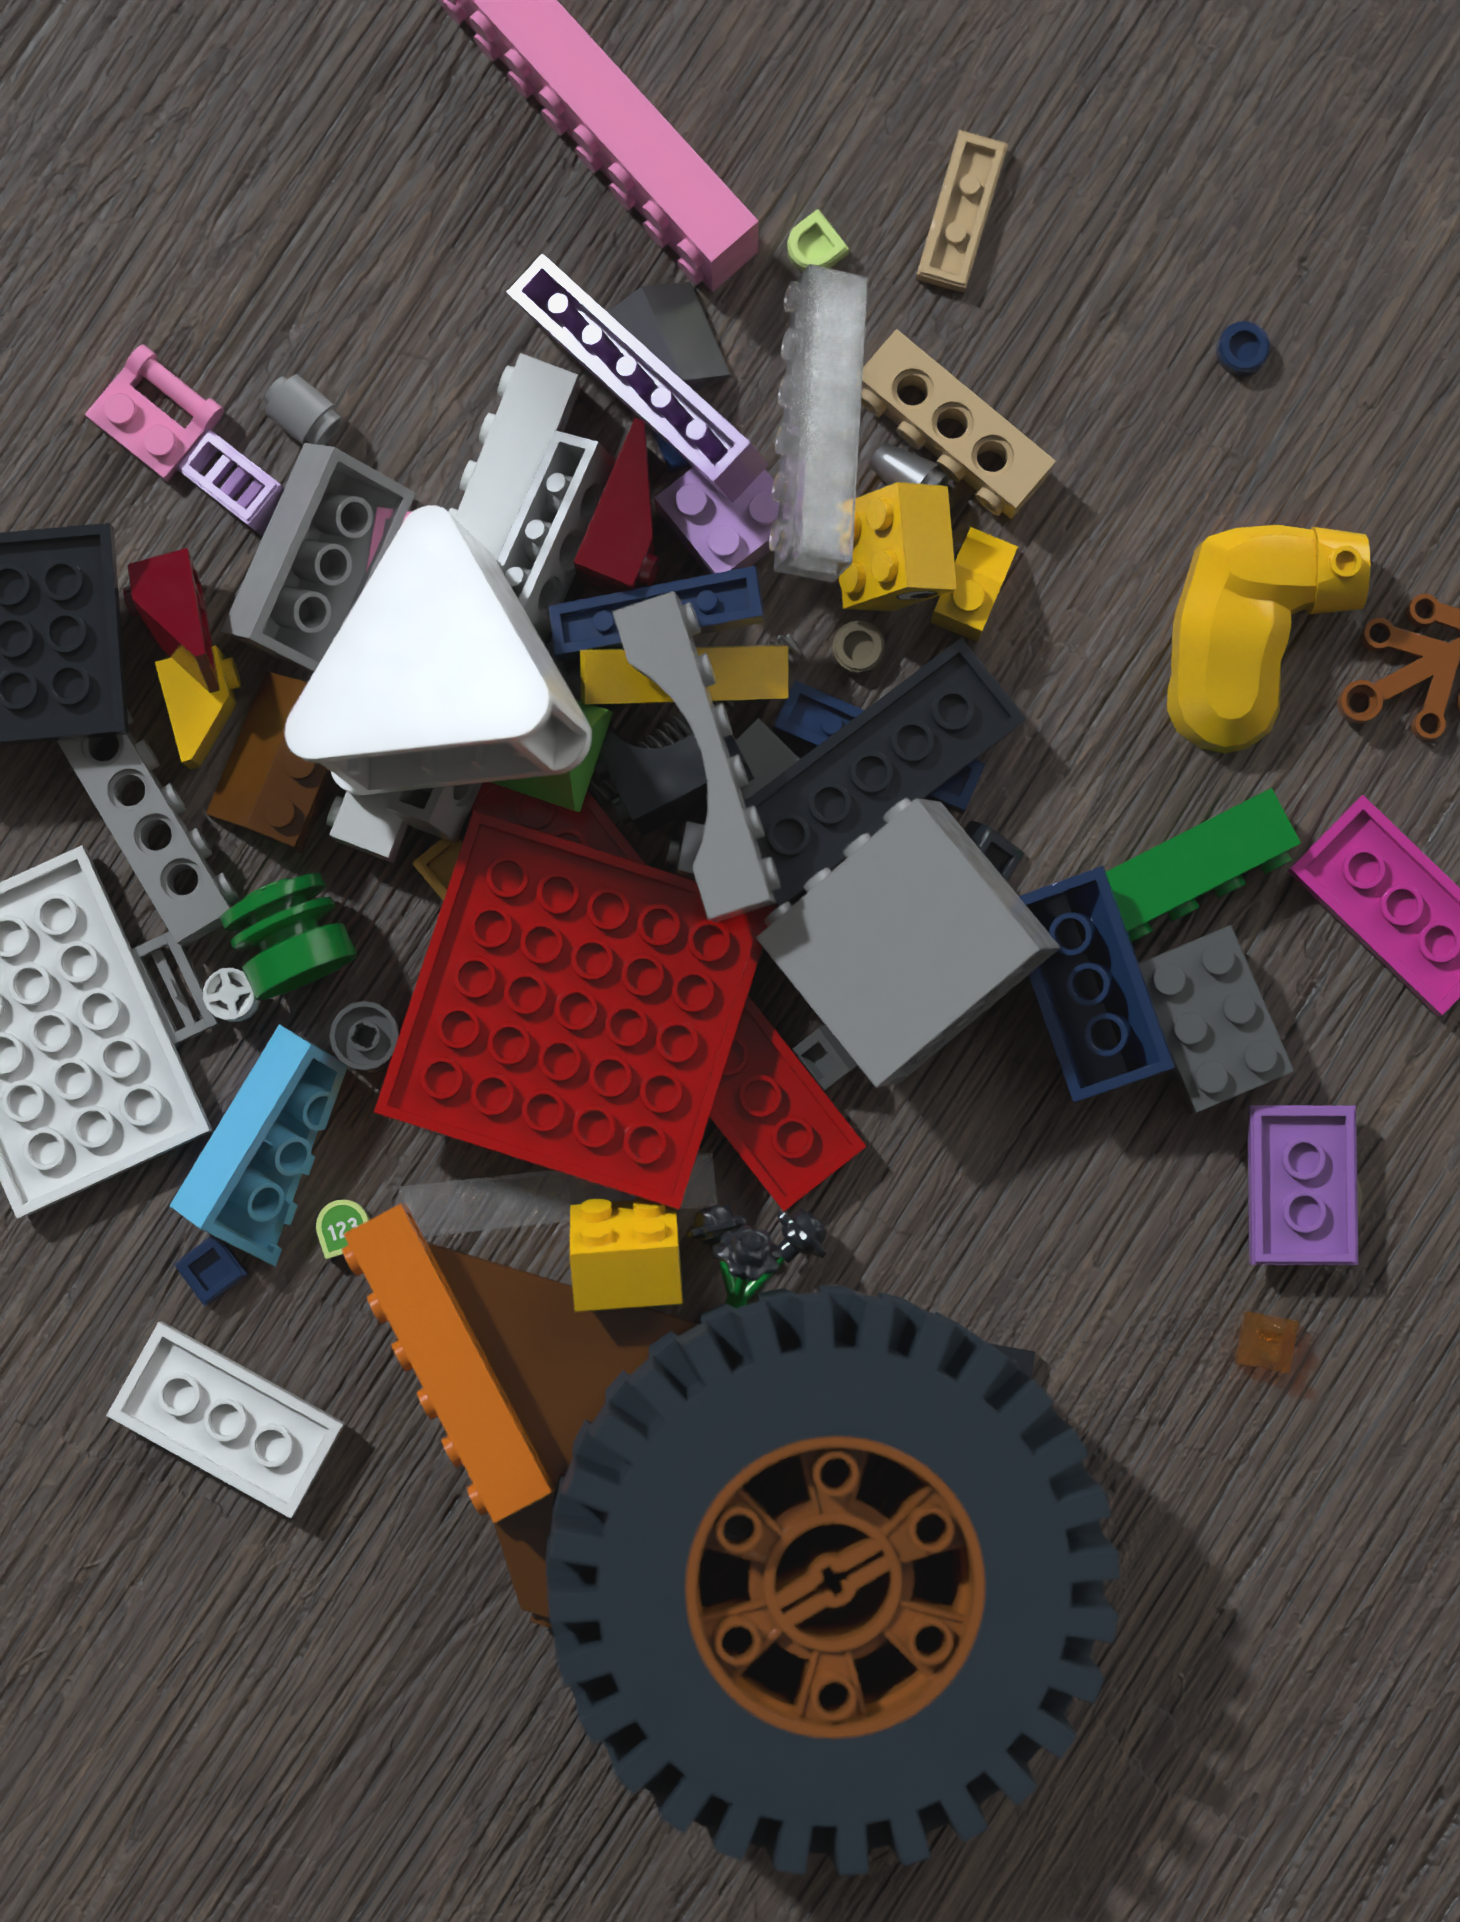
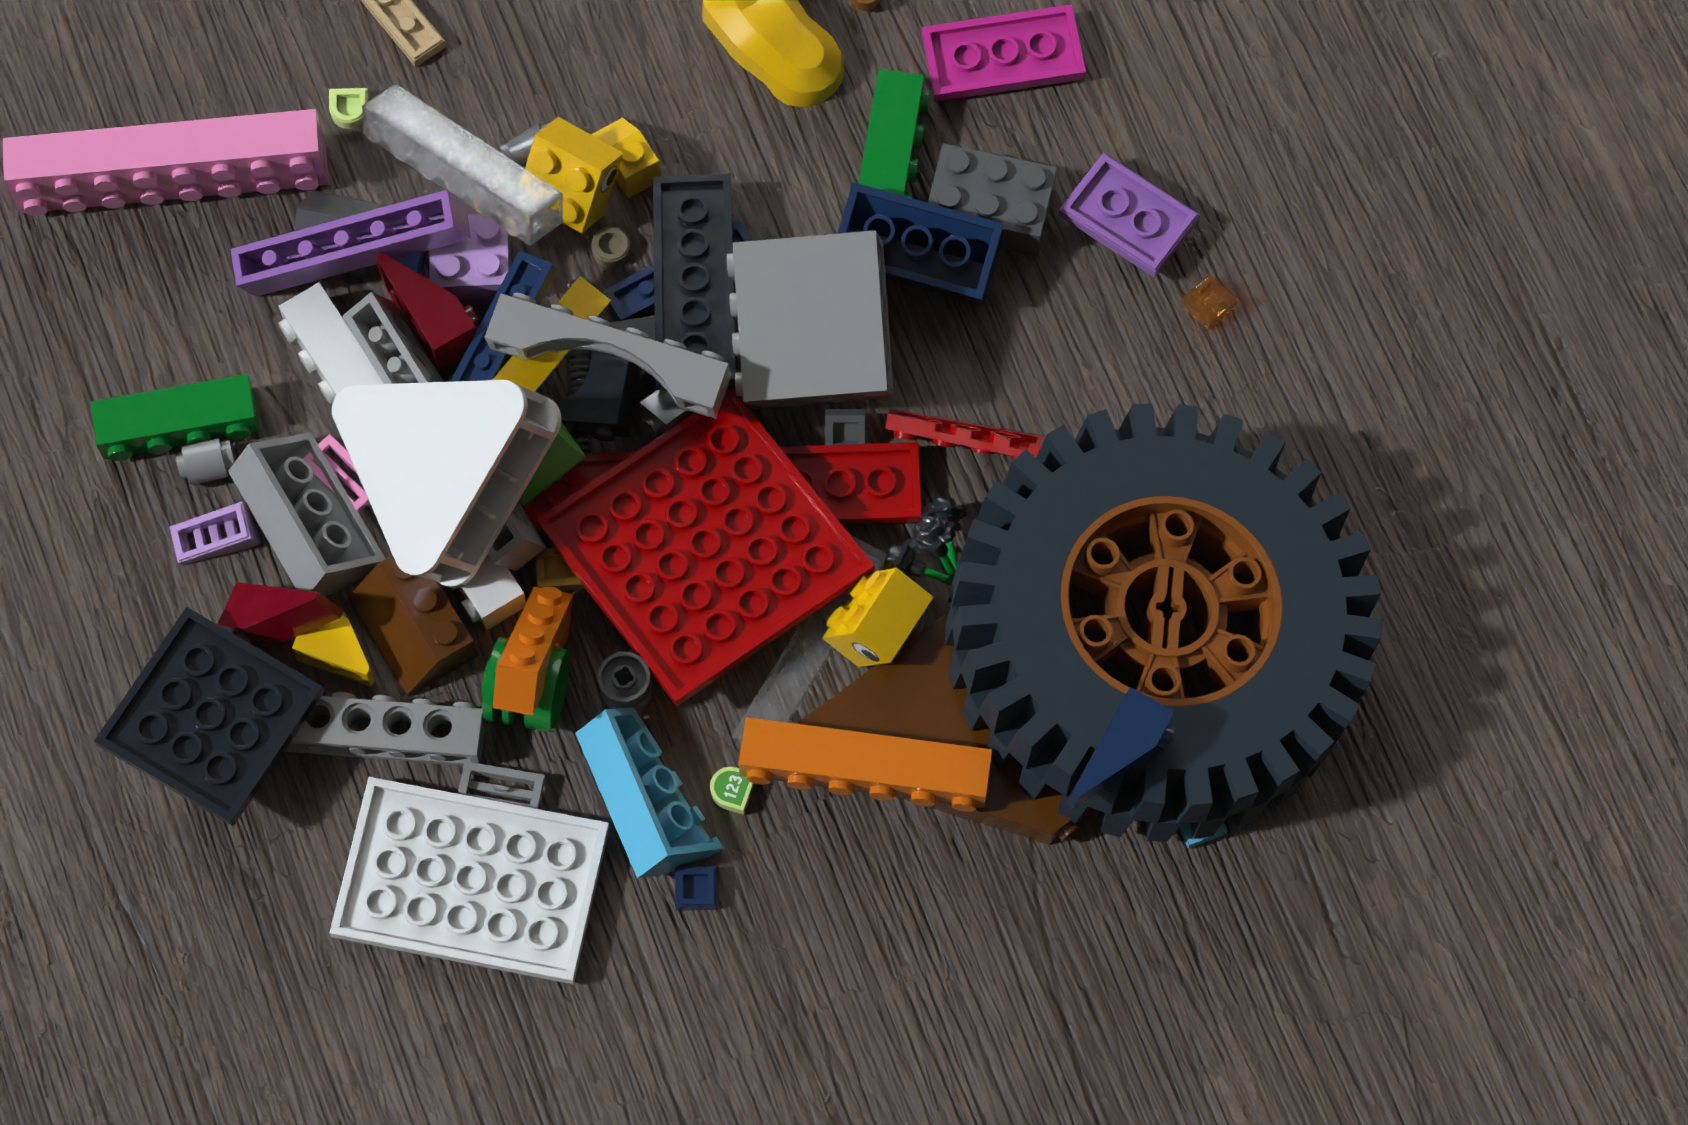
camera: 55 degrees left, 15 degrees down
(143, 426) = (138, 564): bright pink plate -> none
(221, 995) = (531, 745): white wheel -> none
(225, 1419) = (798, 941): white plate -> none
(297, 925) = (528, 651): none -> orange arch
(327, 340) = (175, 417): none -> green brick
(623, 1662) = (1126, 744): none -> dark blue slope
(904, 364) = (532, 84): tan brick -> none
(918, 1212) = (952, 432): none -> red wing

